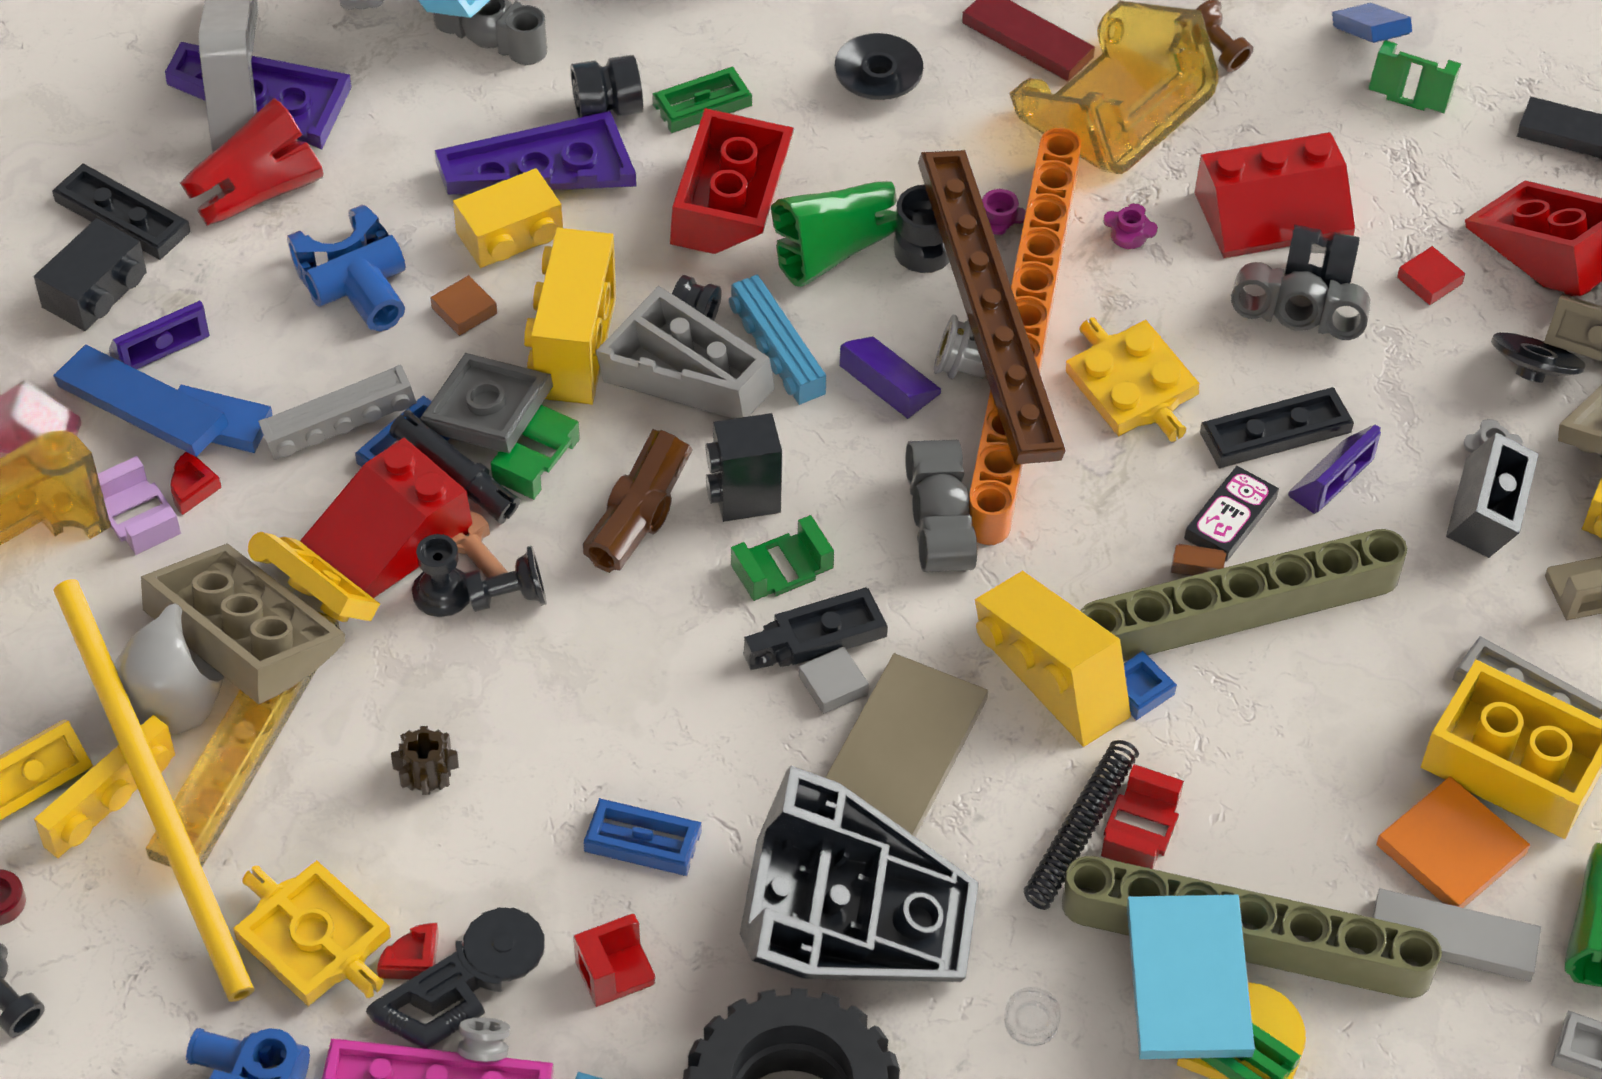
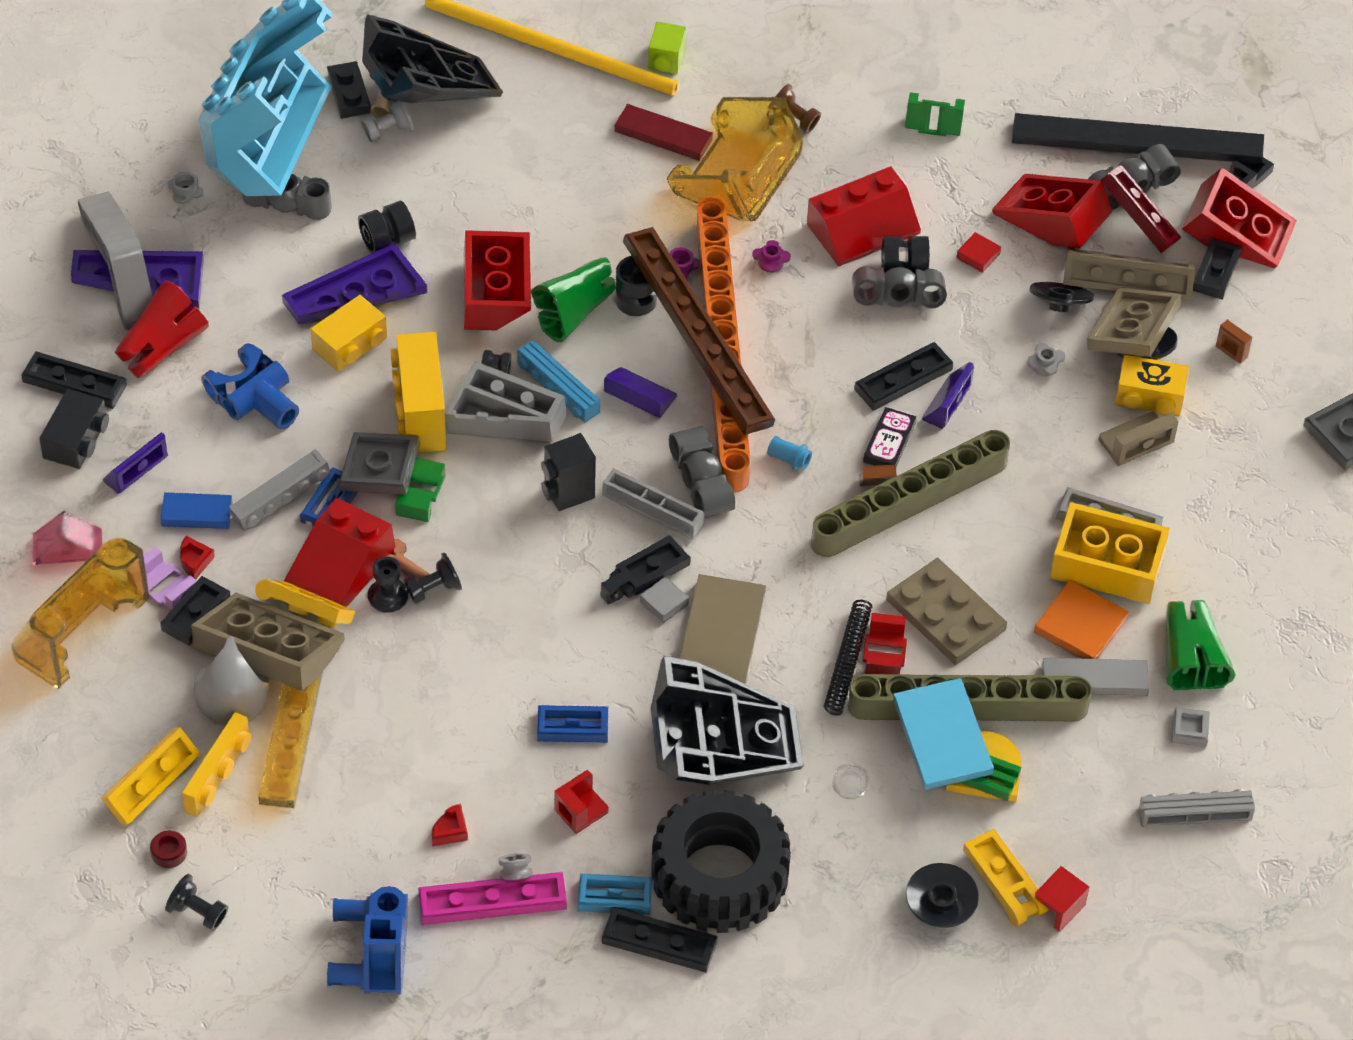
camera: 15 degrees left, 0 degrees up
(141, 400) = (142, 508): blue tile -> none
(154, 792) = (253, 757): yellow piece -> none
(167, 545) = (194, 605): none -> black plate
(312, 932) = (383, 826): yellow plate -> none
(424, 760) = (418, 704): dark brown gear -> none
(463, 305) = (337, 399): dark orange tile -> none
(472, 477) = (401, 524): black pin -> none
(494, 949) = (502, 812): black piece -> none
(638, 502) = (502, 509): reddish brown piece -> none
(700, 89) = (455, 223): green tile -> none
(805, 551) = (620, 519): green piece -> none
(859, 537) = (653, 503): none -> light grey piece
(878, 66) = (569, 175): black dish -> none
(958, 351) = (683, 365): light grey piece -> none
(1057, 654) = (804, 553): yellow wedge -> none
(1086, 509) = (788, 452): none -> dark azure pin
(1132, 378) = (801, 361): yellow plate -> none
(1146, 685) = (860, 562): blue tile -> none
(1250, 785) = (946, 611): none -> dark tan plate
(1372, 22) = (897, 80): blue tile -> none
(1492, 495) = (1055, 393): black brick -> none

